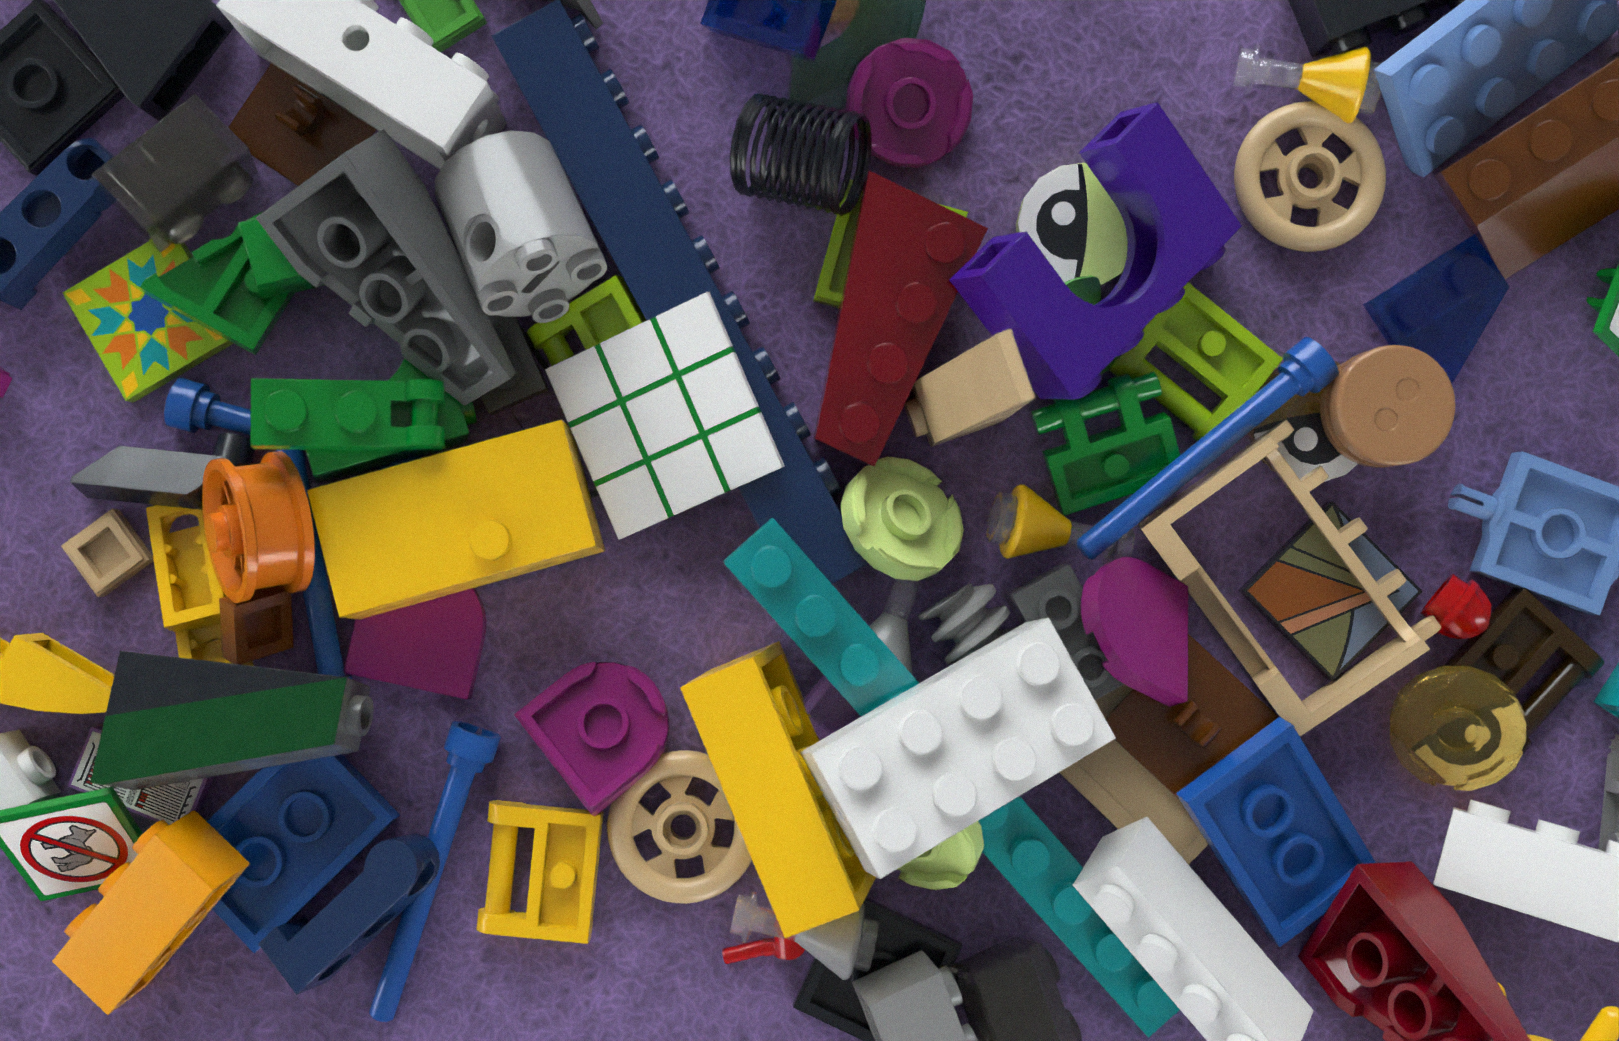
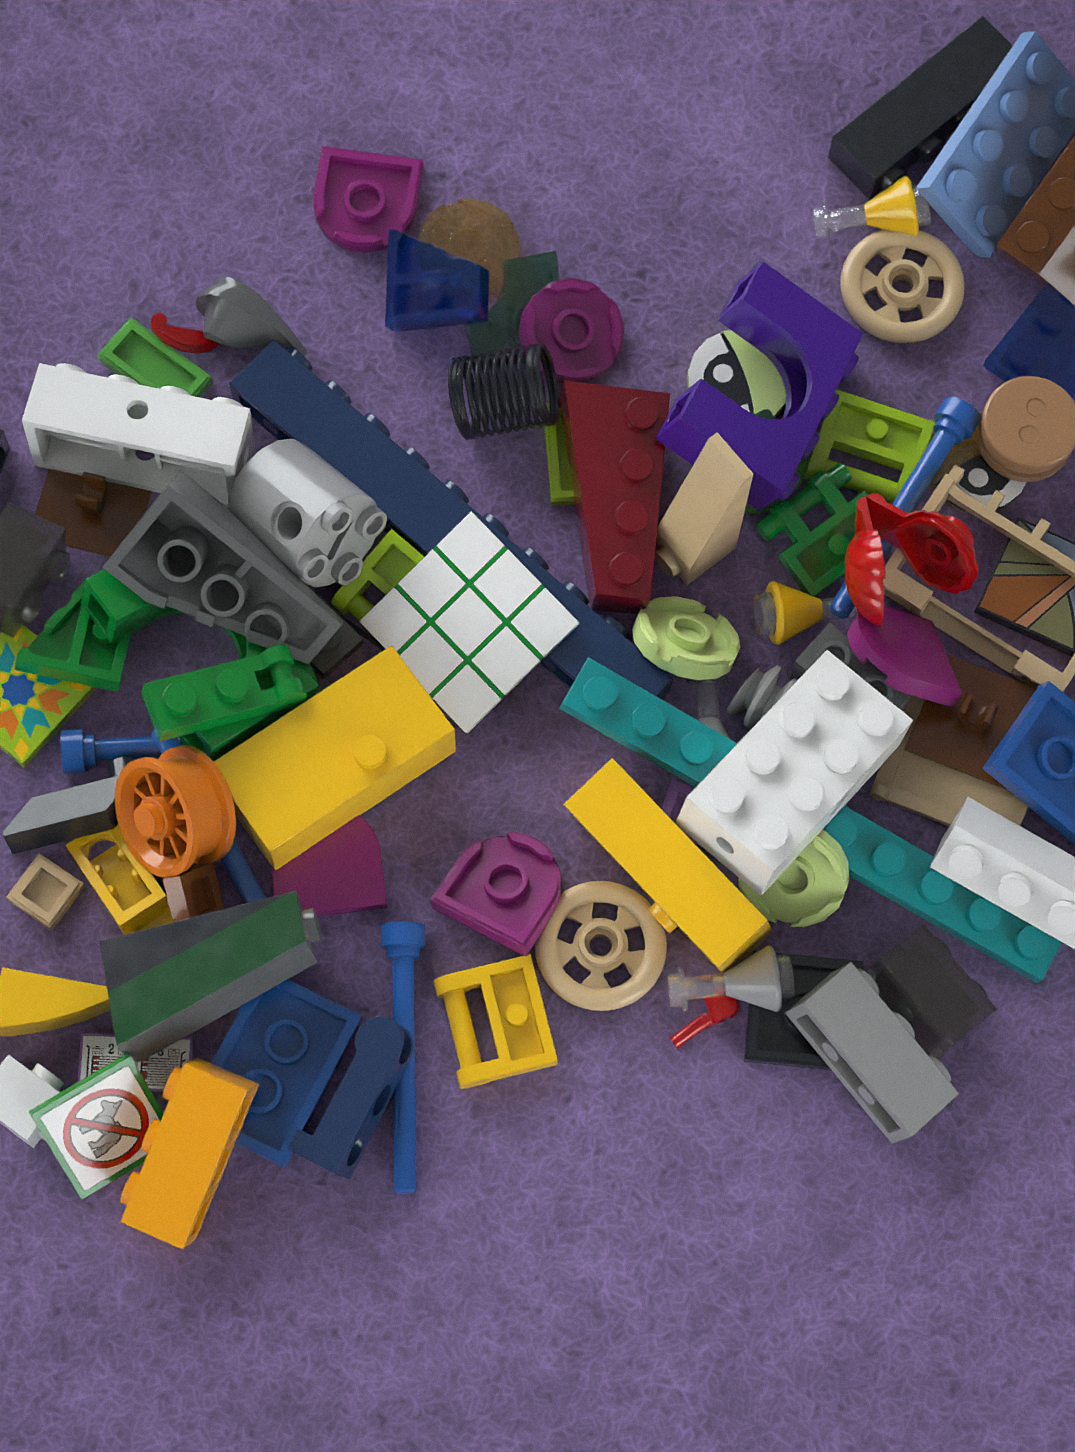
camera: 25 degrees left, 15 degrees down
(1222, 526) = (933, 544): none -> red animal

